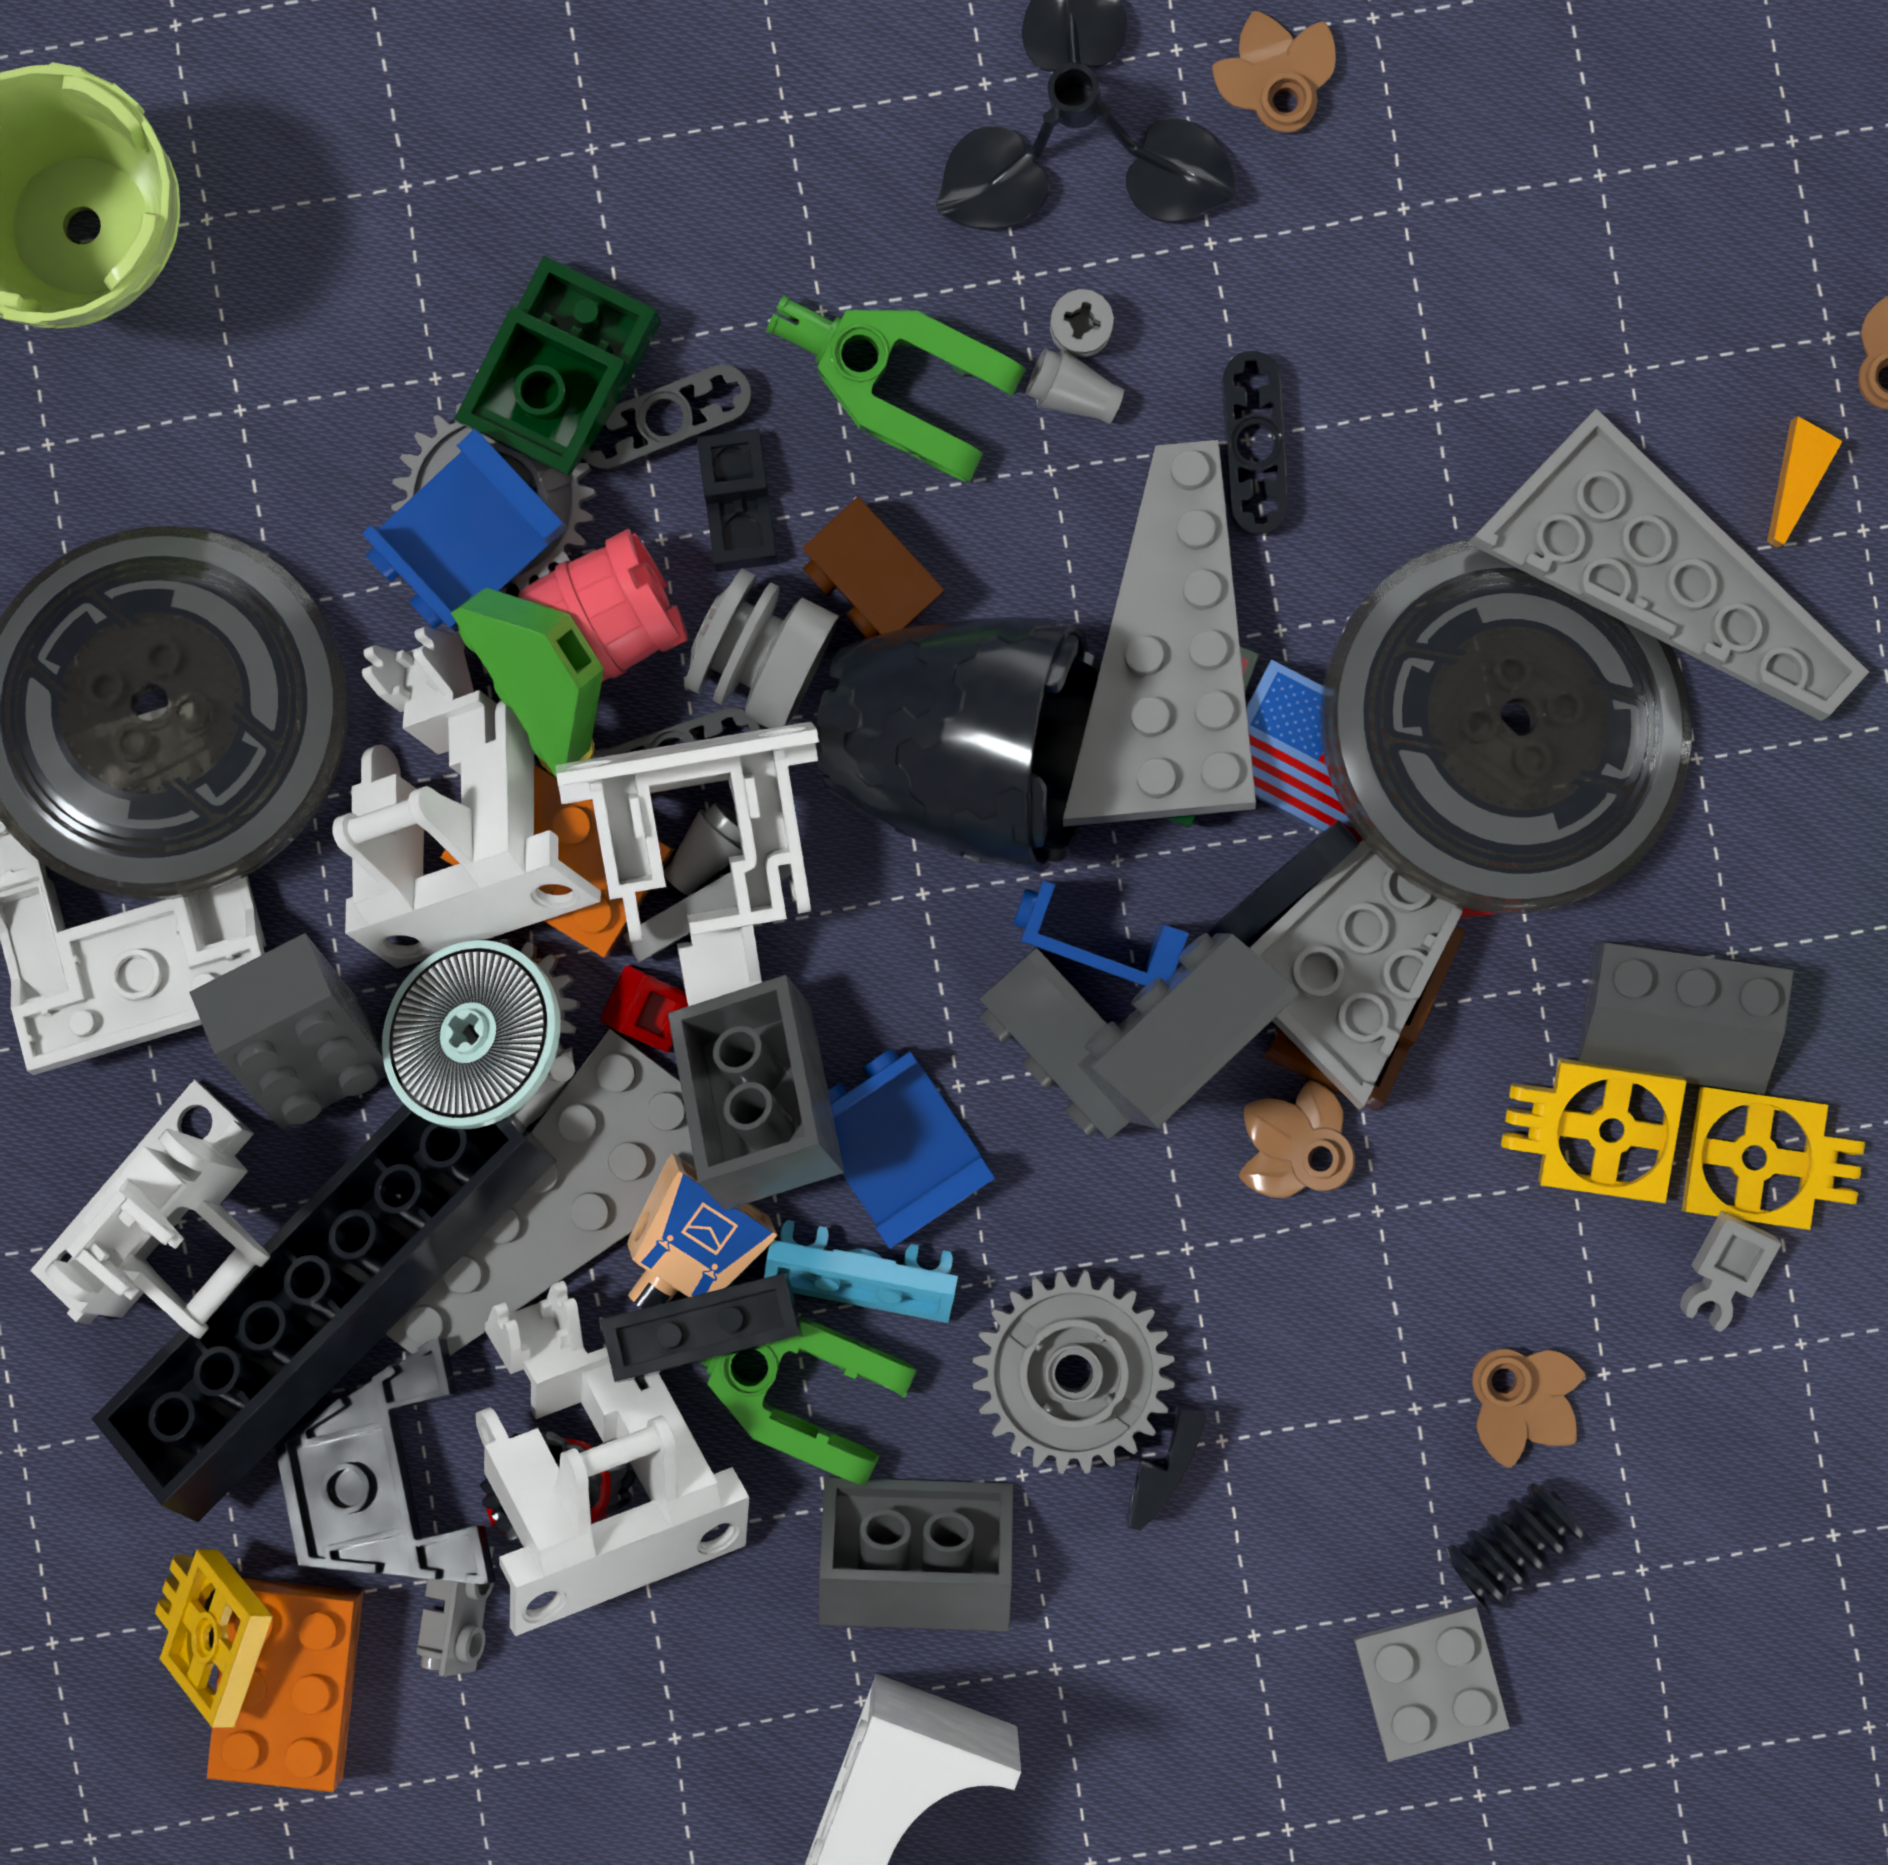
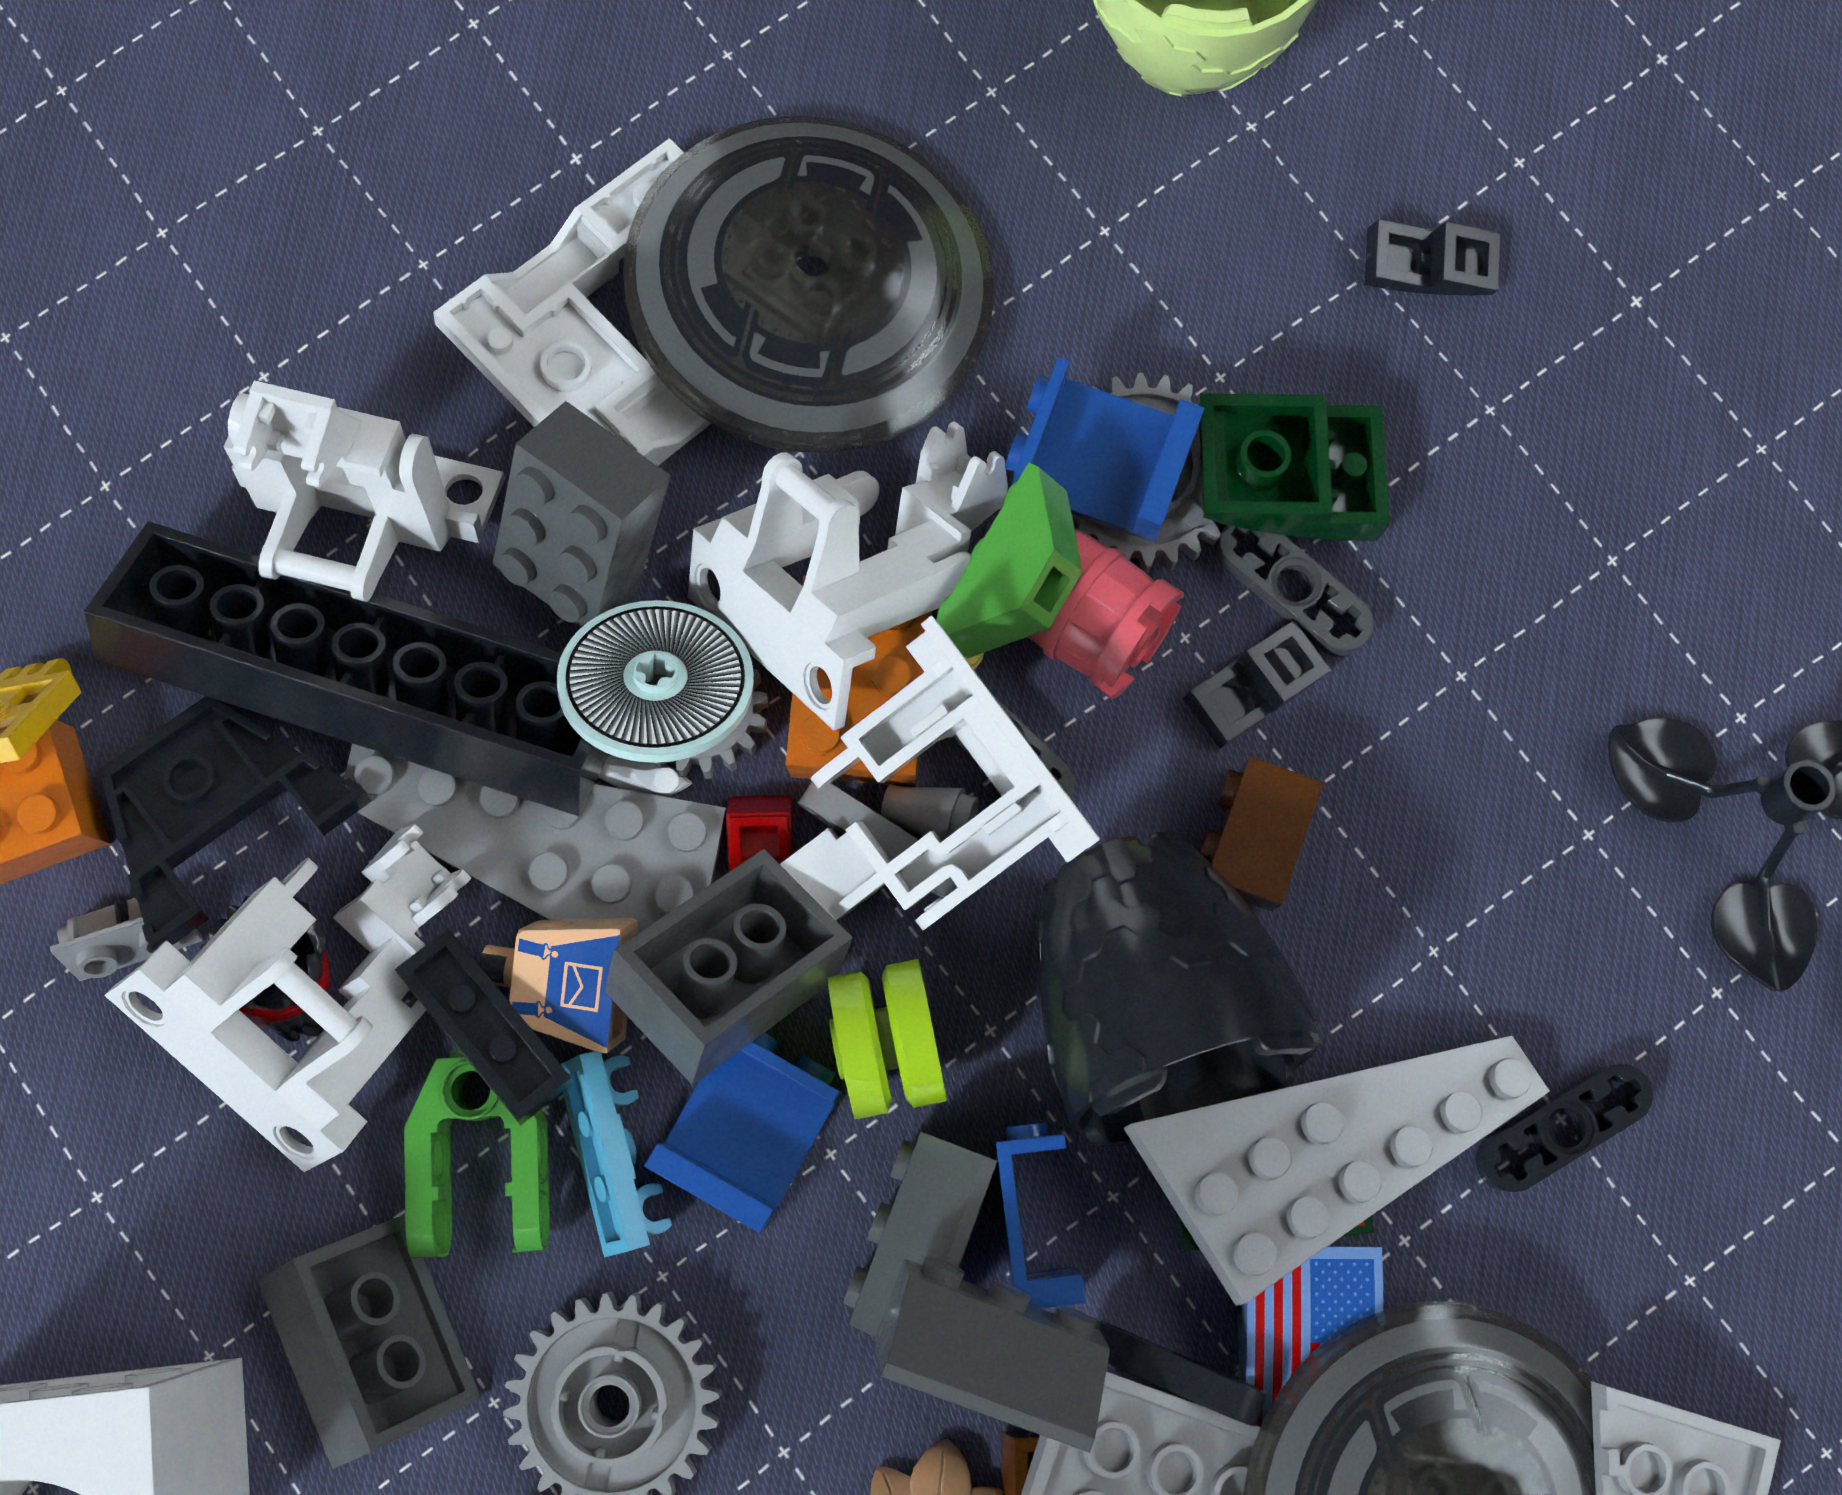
camera: 60 degrees right, 10 degrees down
(424, 125) = (1427, 261): none -> black slope
(760, 650) = (1136, 759): light grey wheel -> none
(854, 389) = (1478, 737): bright green piece -> none
(886, 990) = (885, 1039): none -> lime wheel
(1070, 386) = (1523, 932): light grey cone -> none
(1078, 333) = (1570, 916): light grey wheel -> none

